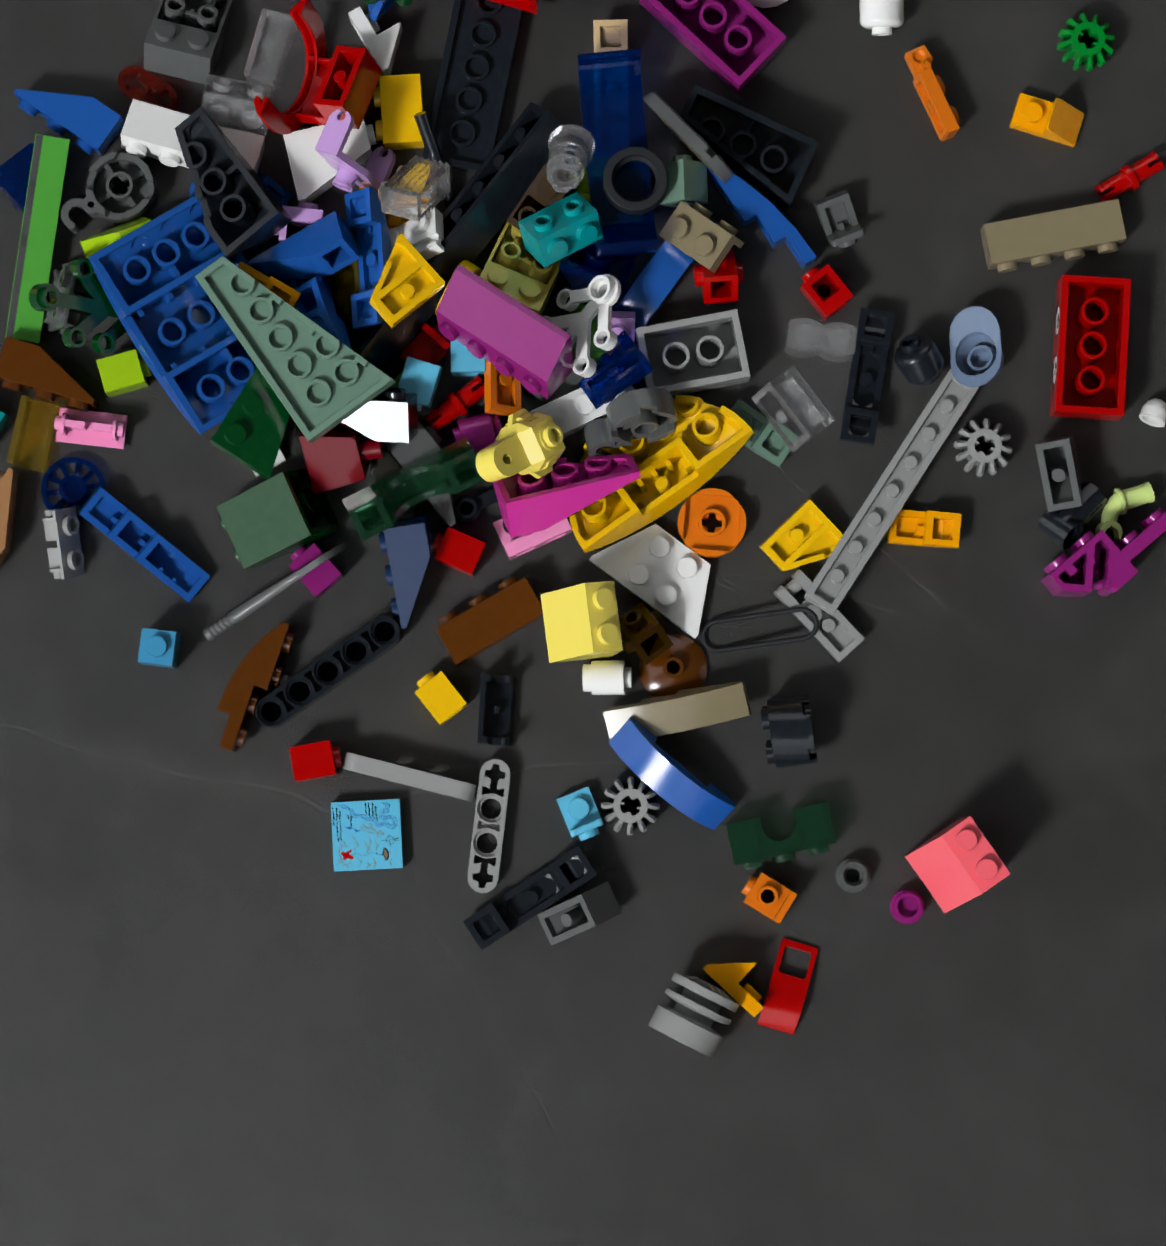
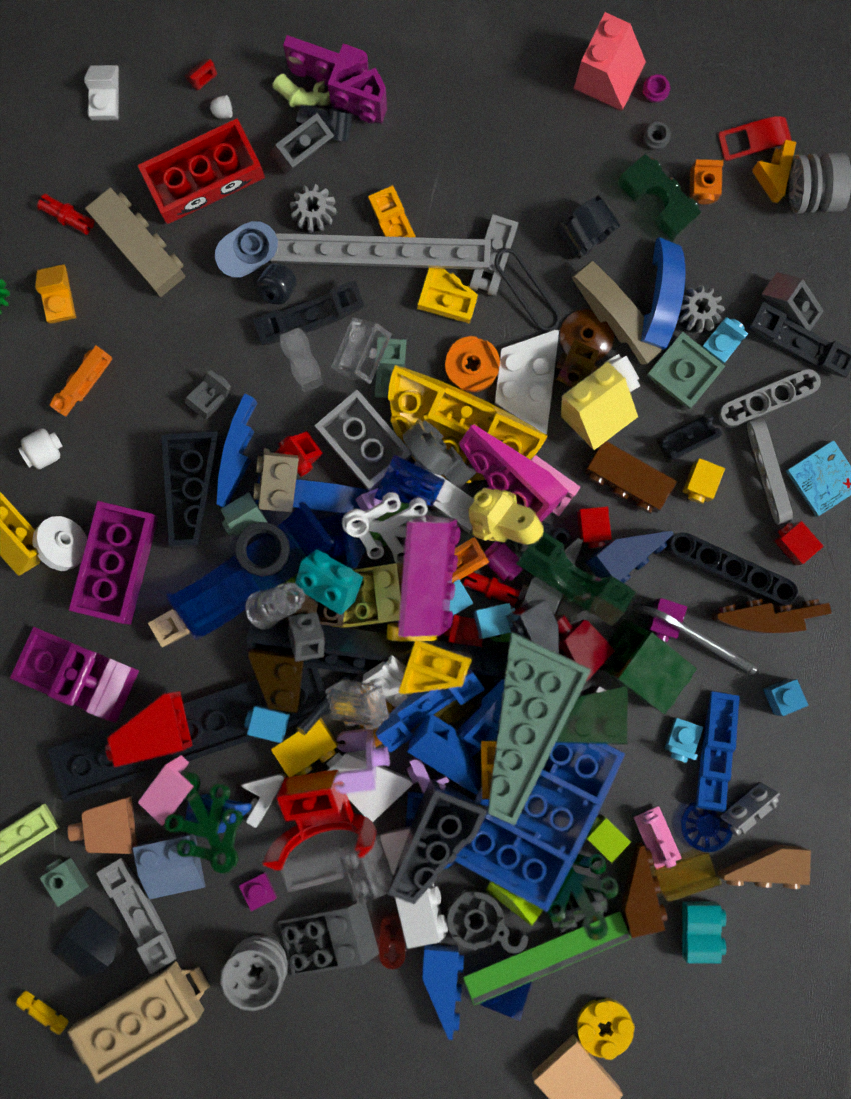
camera: 120 degrees left, 0 degrees up
(176, 515) = (683, 740): none -> medium azure bracket
(448, 84) = (267, 723): none -> dark azure brick
(490, 122) = (278, 678): none -> dark brown wing
(515, 171) = (306, 636): none -> dark grey brick
(571, 751) = (686, 370): none -> sand green plate
(689, 136) = (209, 527): dark grey tile -> none
(826, 277) = (263, 366): red brick -> none

